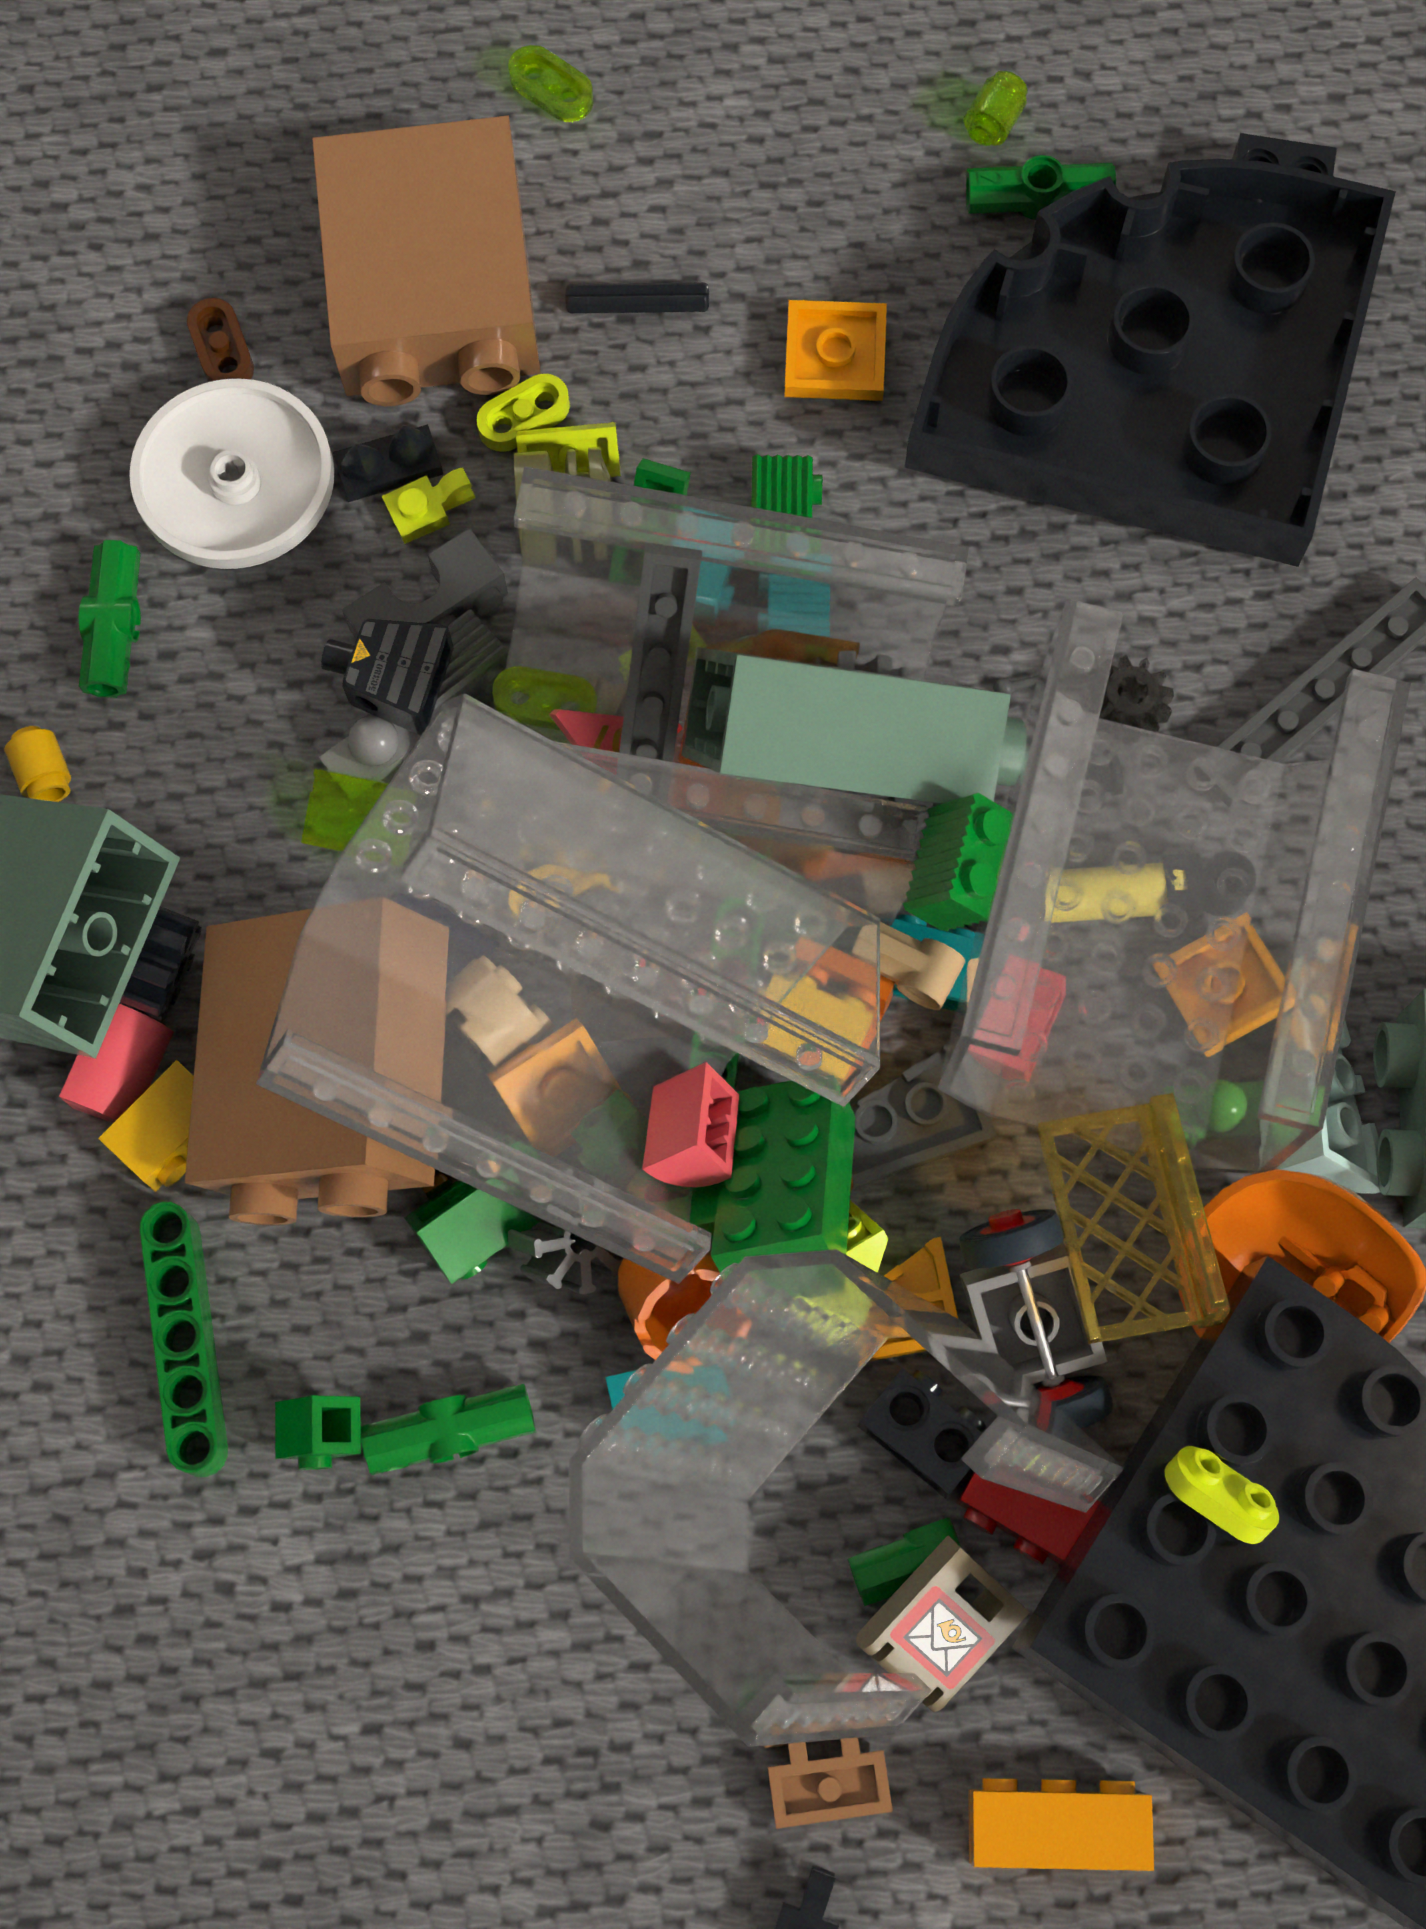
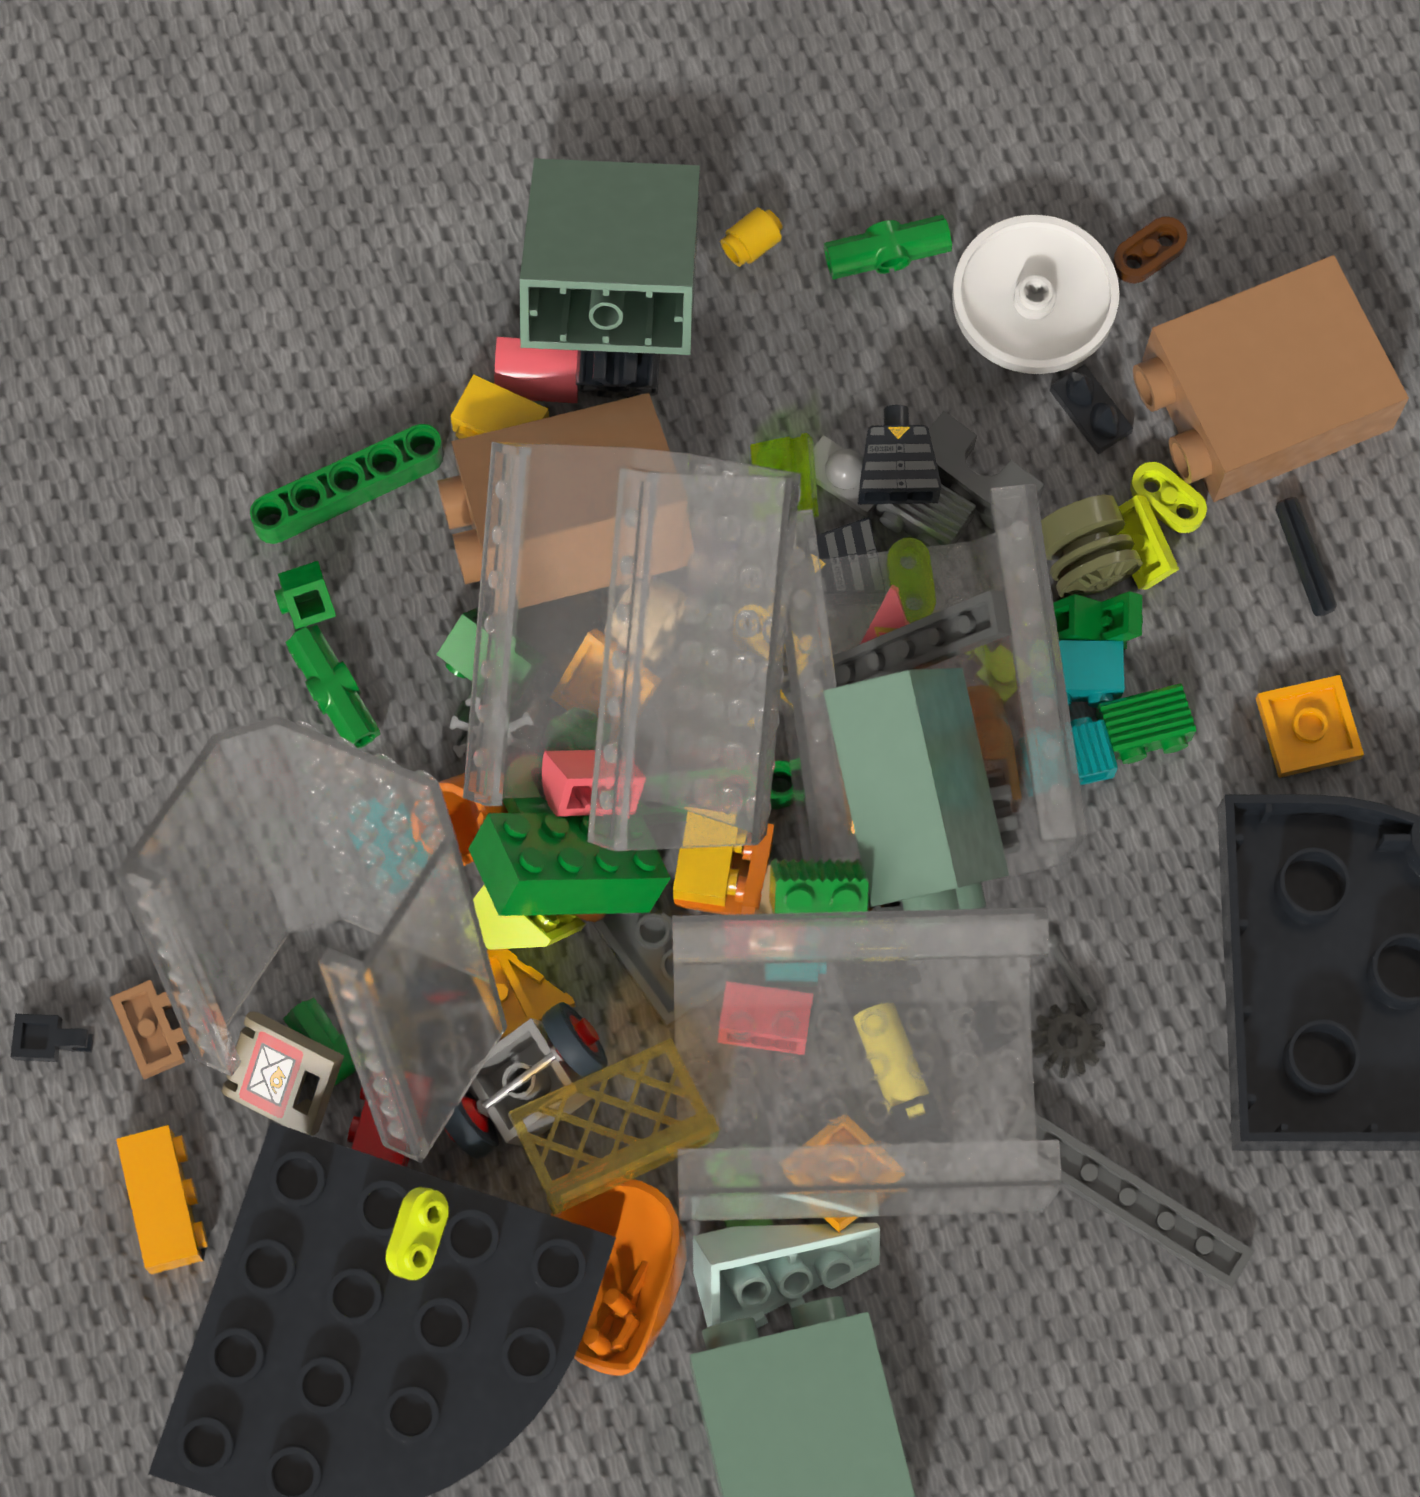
camera: 70 degrees right, 0 degrees up
(421, 508) = (1062, 446): neon yellow plate -> none

